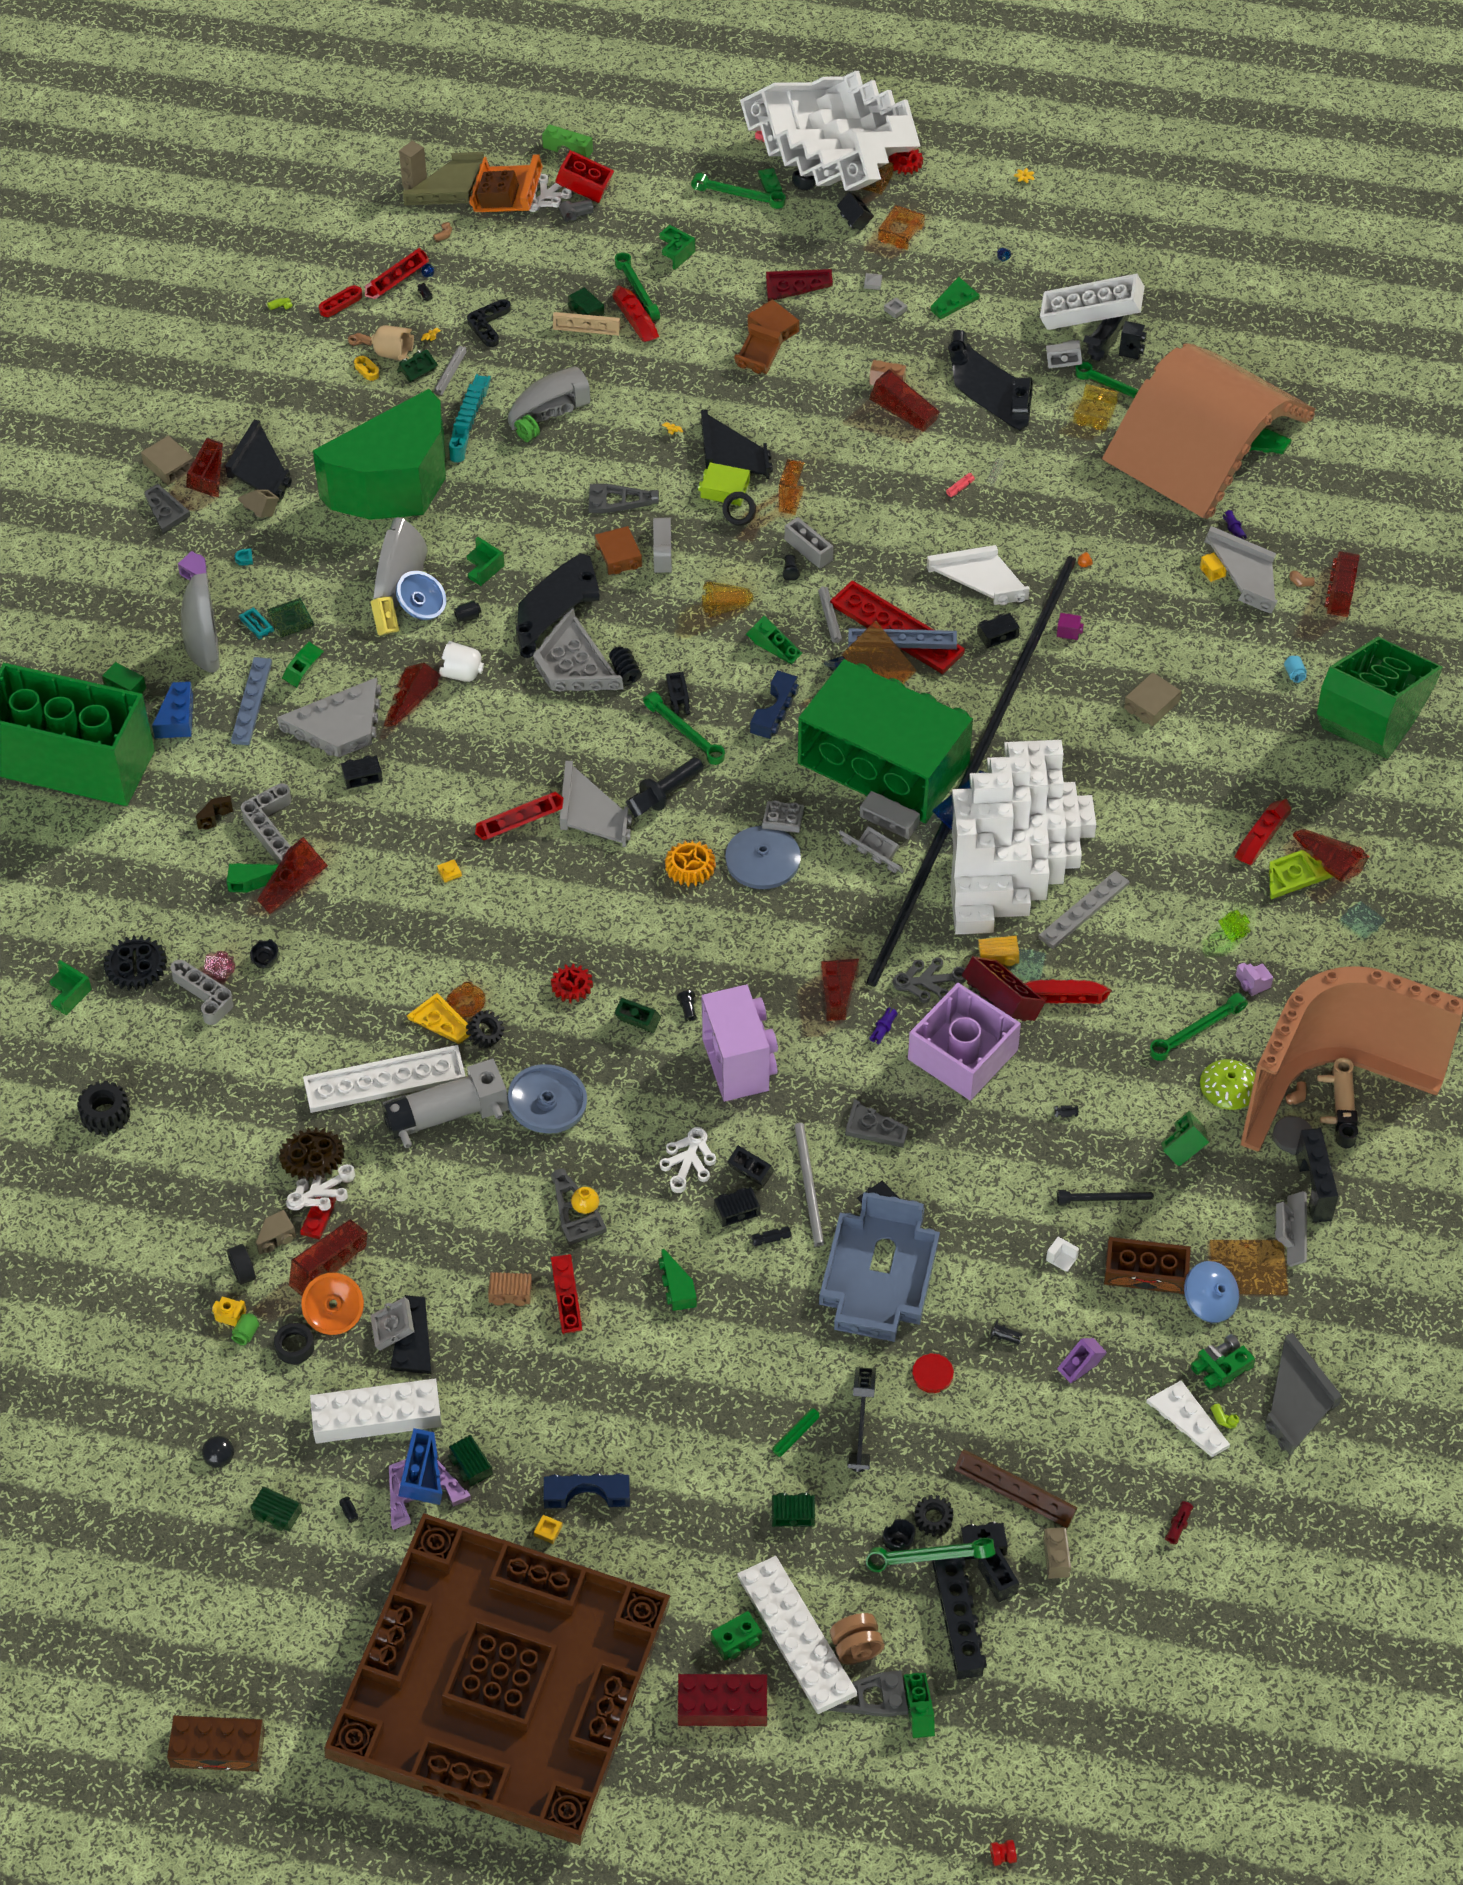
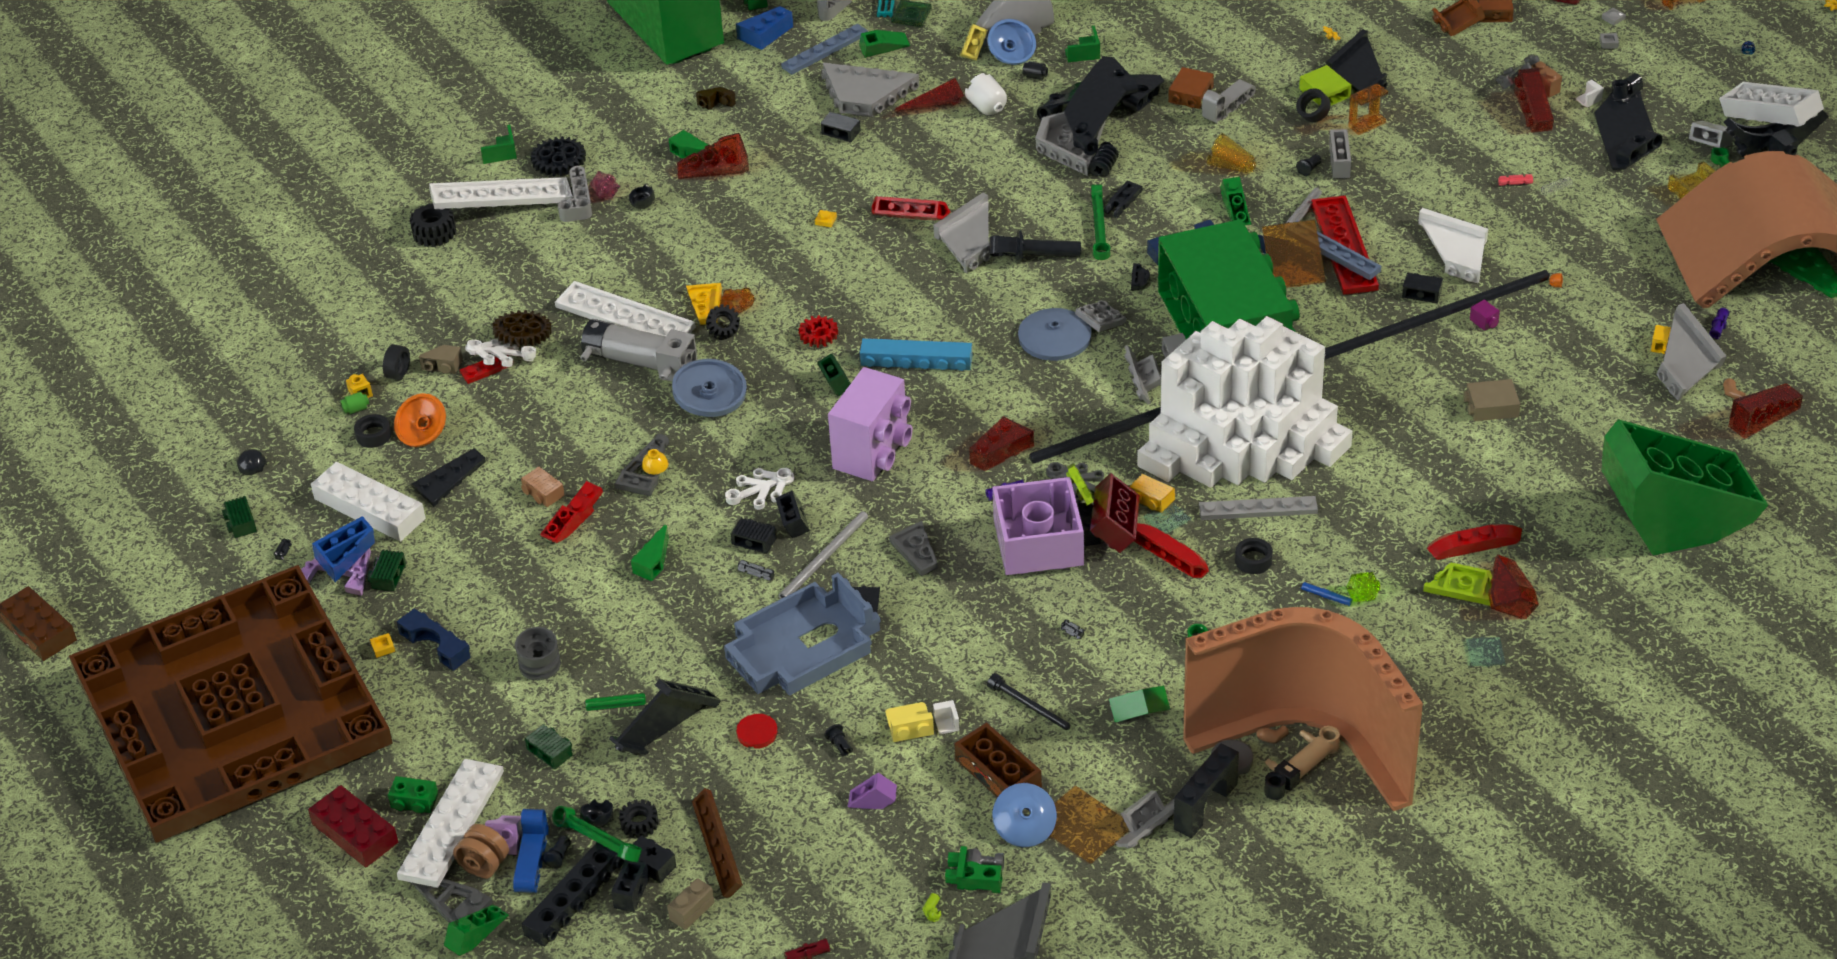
camera: 45 degrees right, 10 degrees down
(135, 1035) = (499, 193): none -> white plate
(255, 816) = (749, 111): light grey beam -> none
(327, 1255) = (457, 390): clear red wedge -> none
(392, 1323) = (441, 456): light grey plate -> none
(574, 613) = (1095, 101): none -> black panel
(599, 492) = (1224, 47): dark grey plate -> none
(677, 951) = (916, 354): none -> dark azure brick
(693, 869) = (994, 306): light orange gear -> none
(699, 1428) = (537, 653): none -> dark grey wheel
(773, 759) = (1140, 277): none -> black plate
(849, 1602) = (510, 829): none -> lavender brick
(861, 365) = (1506, 79): none -> dark grey plant
(890, 1611) = (533, 844): none -> blue beam
(906, 1595) = (555, 855): none -> black pin
(934, 368) = (1592, 94): none -> white panel
(949, 978) = (1082, 489): none -> lime wing
(954, 298) = (1667, 58): green wing -> none
(1038, 1278) = (909, 721): none -> light yellow bracket
(1128, 965) = (1253, 566): none -> black tyre
(1188, 1416) = (906, 888): white wing -> none
(1209, 949) = (1327, 594): none -> blue piece

